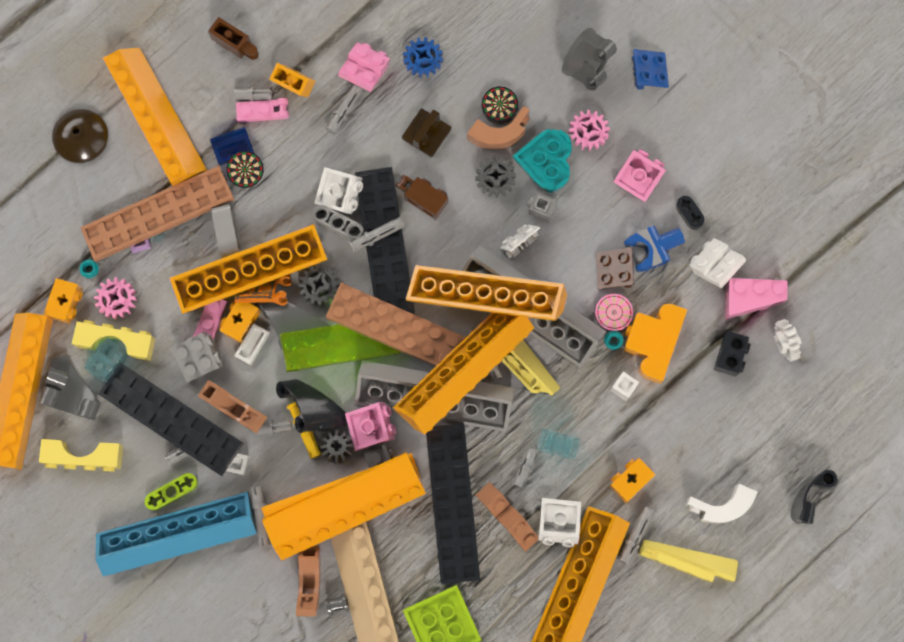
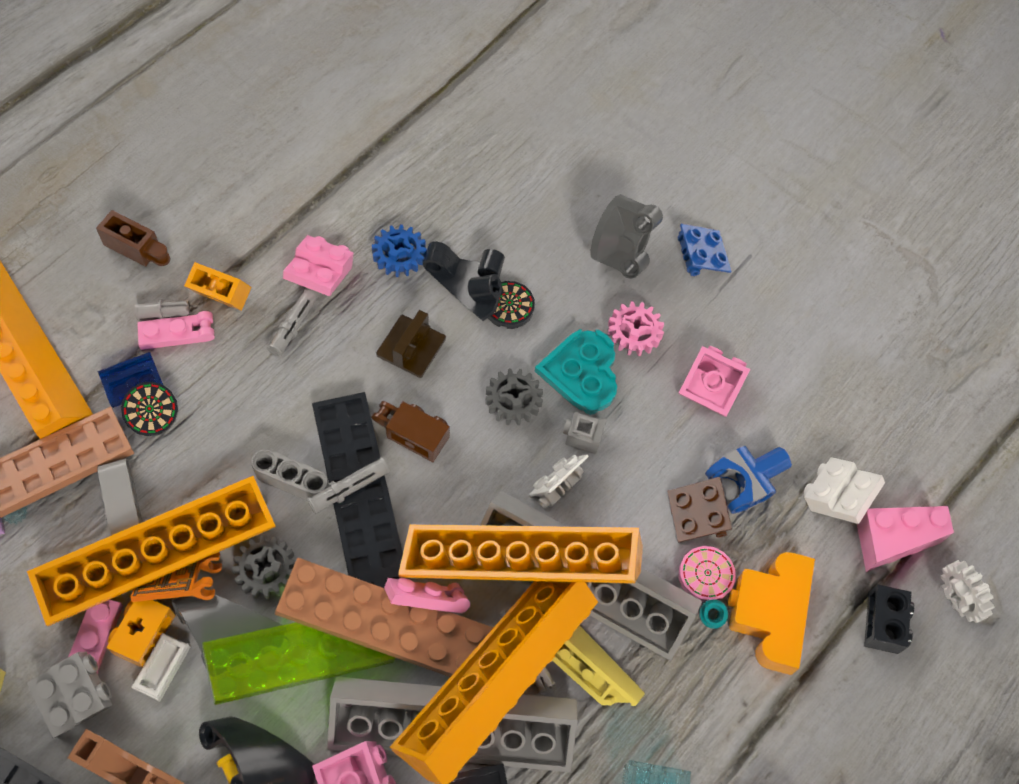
camera: 15 degrees left, 15 degrees down
(338, 190) = (290, 428): white plate -> none
(424, 313) = (427, 595): none -> bright pink plate
(471, 82) = (471, 282): none -> black panel
(499, 138) = (515, 345): nougat arch -> none
(624, 386) = (742, 682): white panel -> none
(686, 215) = (789, 427): black beam -> none

